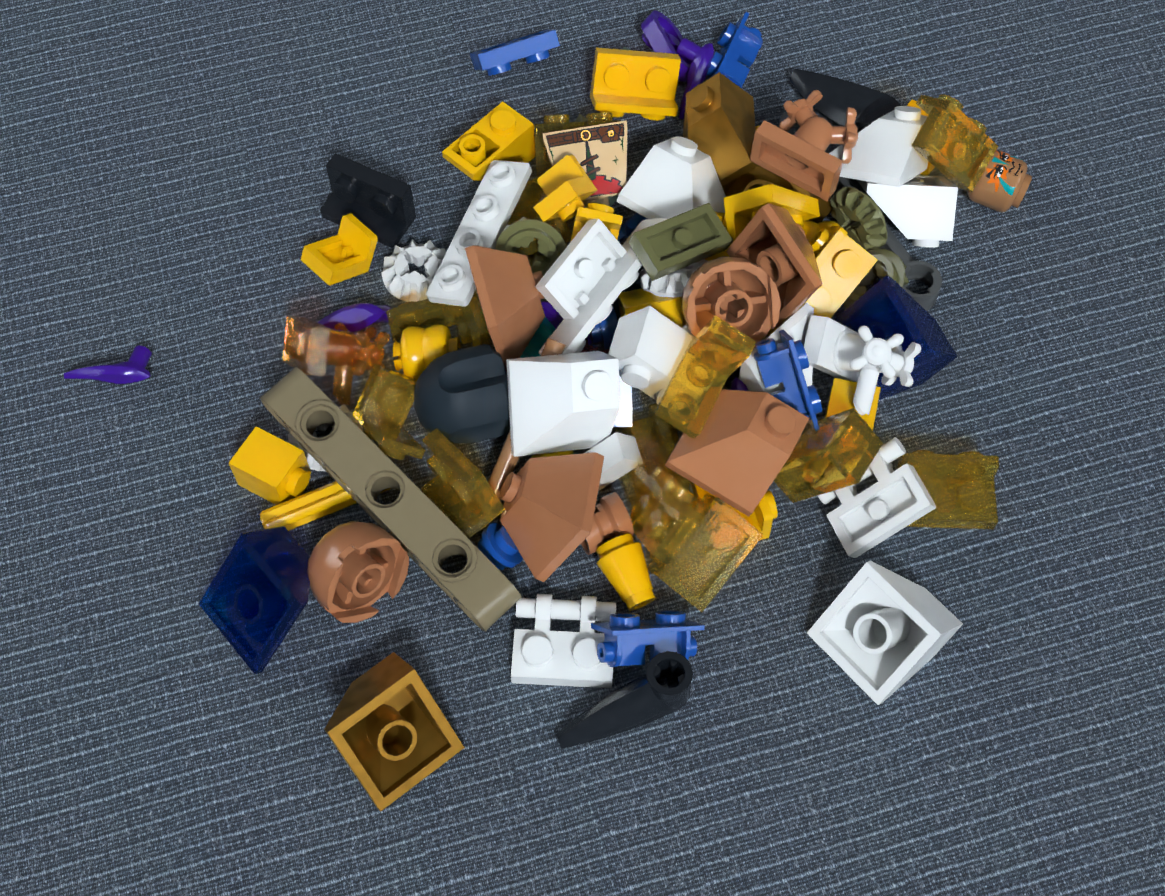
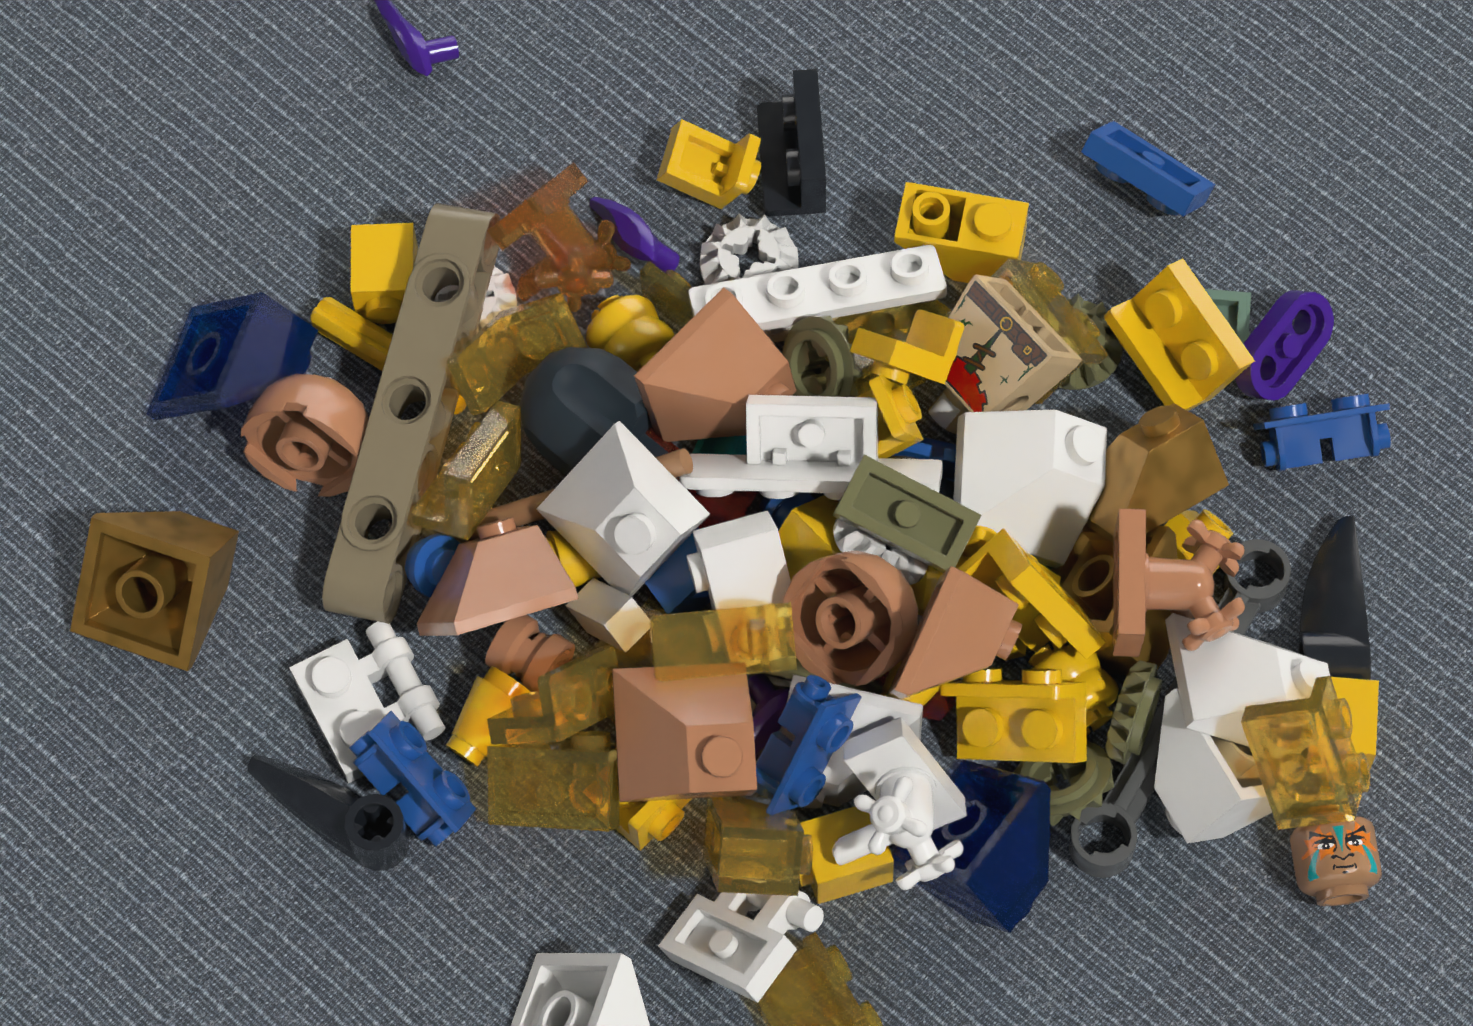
camera: 60 degrees right, 5 degrees up
(701, 61) = (1260, 398): dark purple bar -> none

